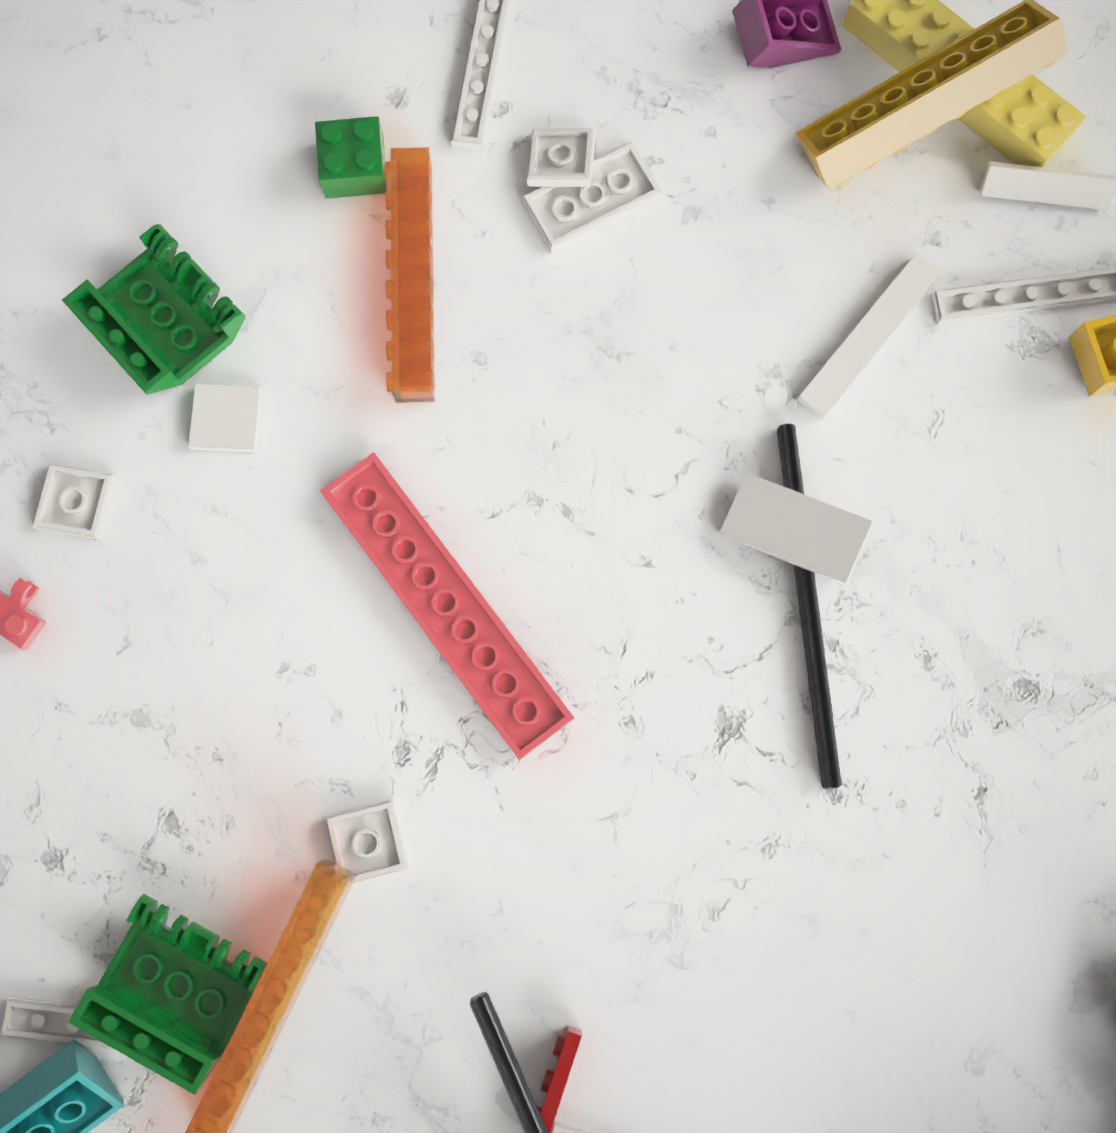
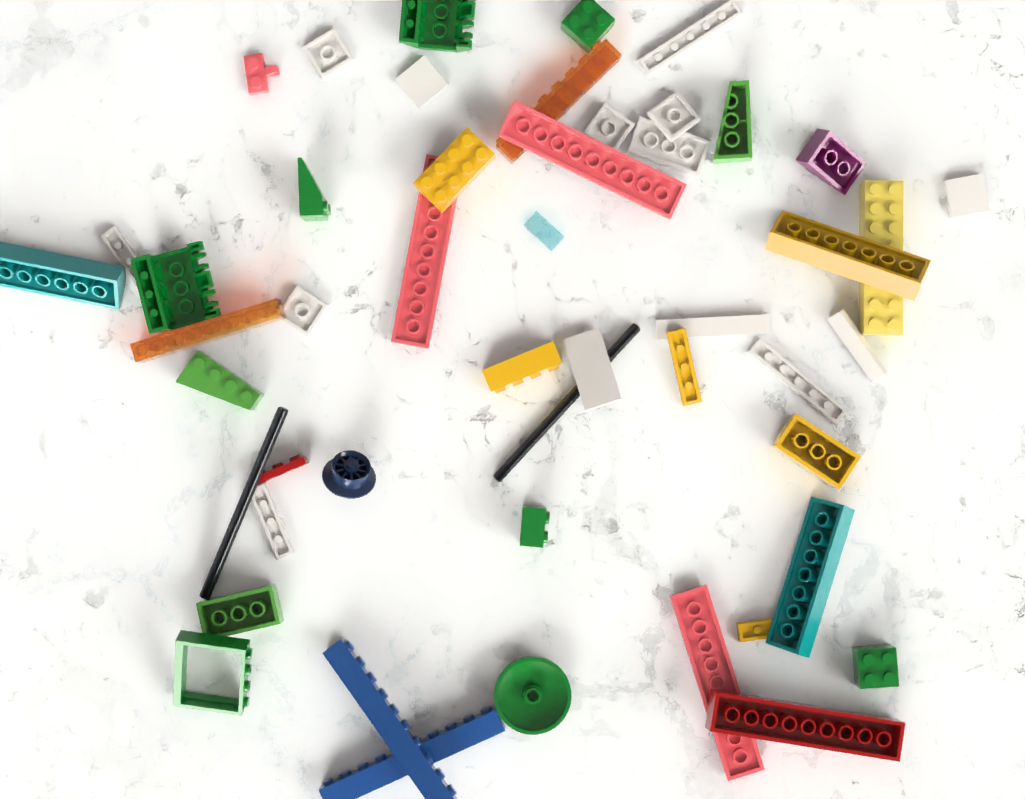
camera: 45 degrees right, 10 degrees up
(239, 694) = (312, 202): none -> green slope
(347, 1057) = (215, 380): none -> bright green wedge
(374, 470) = (454, 170): none -> yellow brick
(502, 247) = (609, 126): none -> white tile
(521, 294) = (591, 160): none -> coral plate
(557, 434) = (544, 231): none -> clear light blue tile
(642, 93) = (735, 136): none -> bright green wedge
(654, 989) = (349, 475): none -> dark blue piece
(710, 617) = (522, 366): none -> yellow brick
(892, 413) = (683, 366): none -> yellow tile
(948, 793) = (533, 526): none -> green brick

